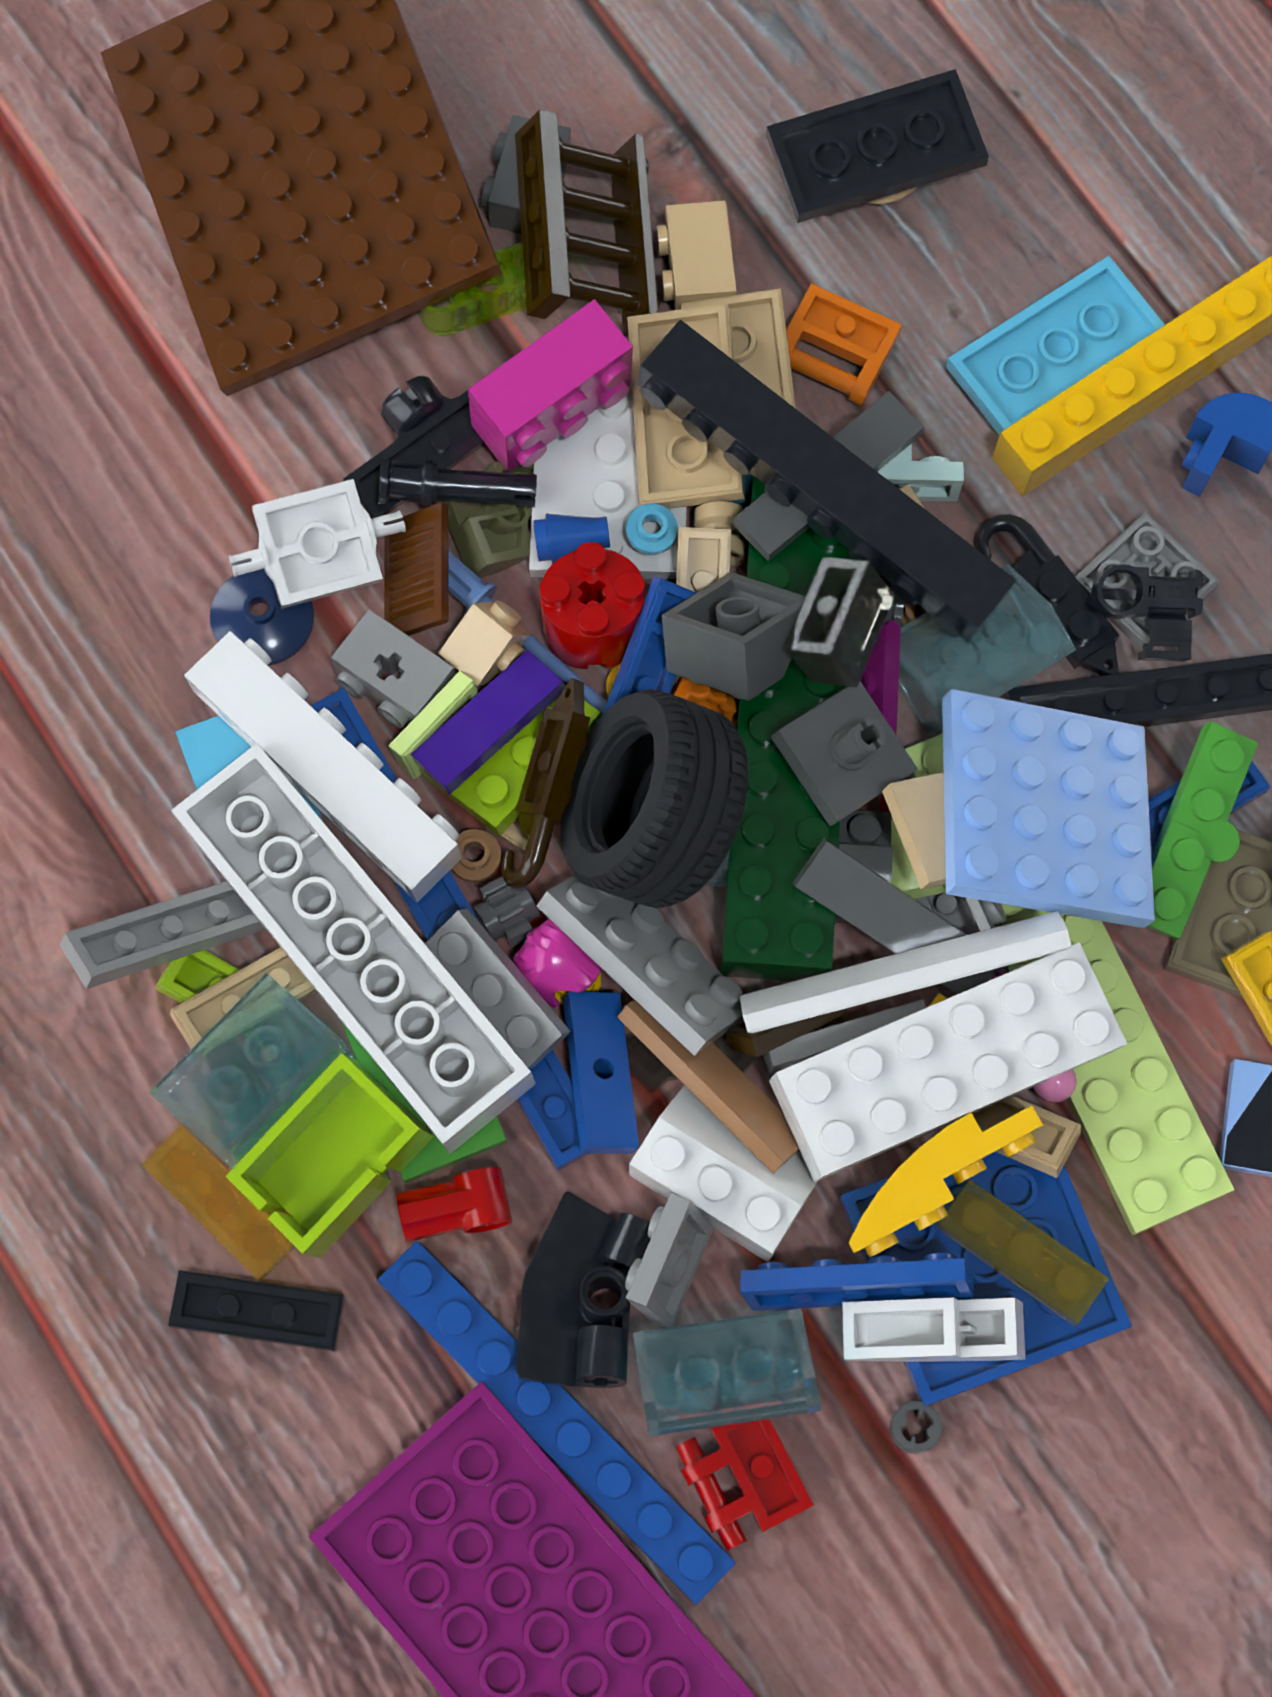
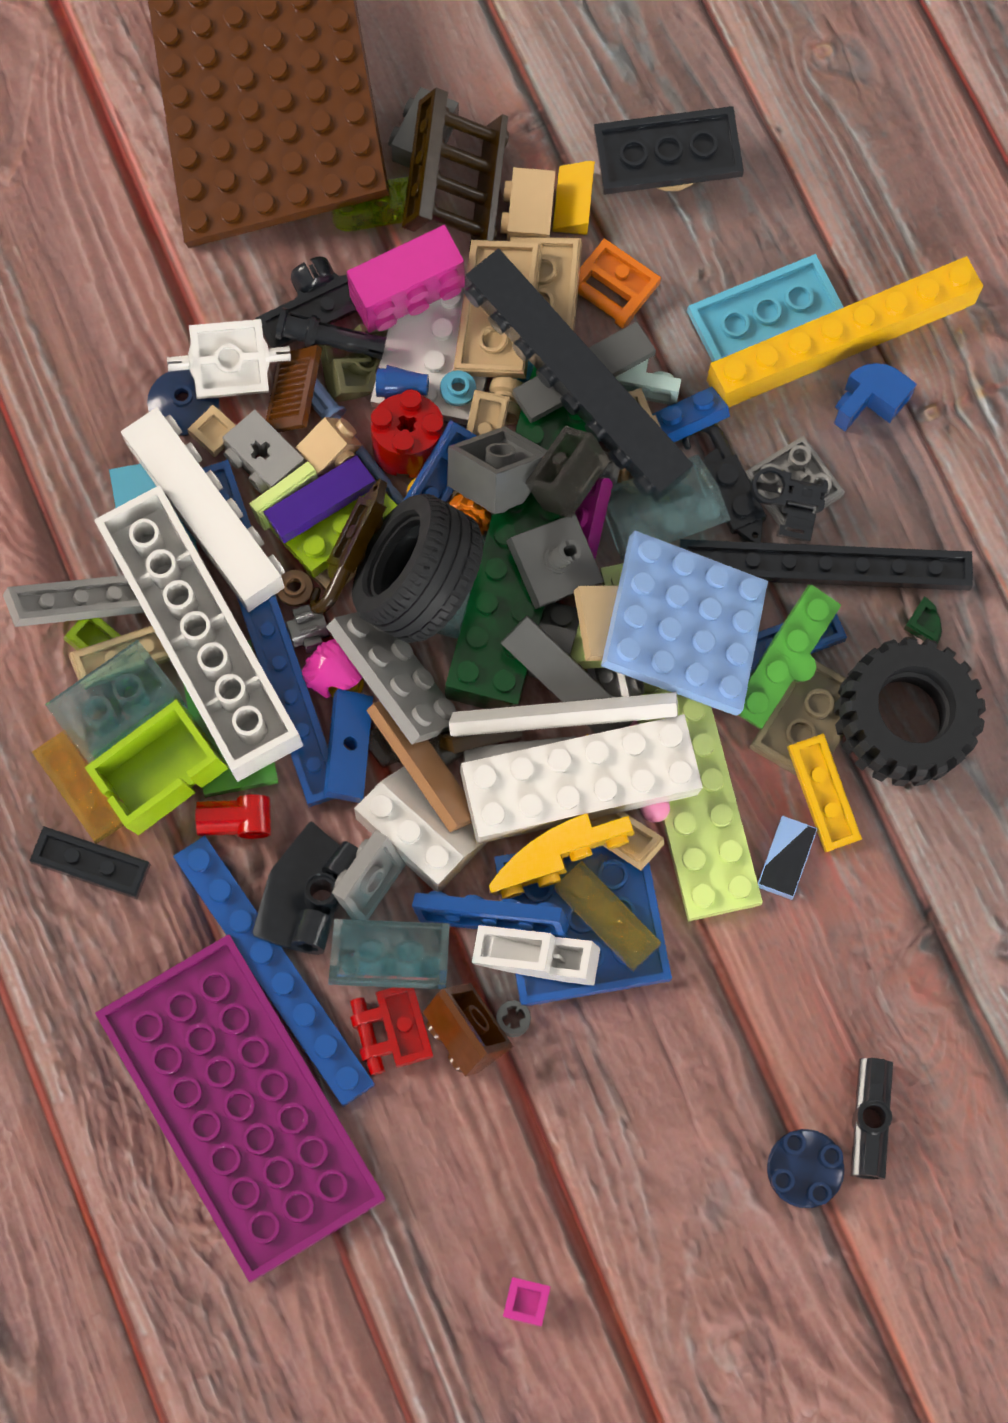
camera: 10 degrees right, 0 degrees up
(311, 649) = (210, 429): none -> tan plate
(497, 987) = (289, 677): light grey plate -> none
(756, 234) = (573, 198): none -> yellow slope
(856, 1460) = (466, 1029): none -> reddish brown slope
(989, 506) = (692, 414): none -> blue plate

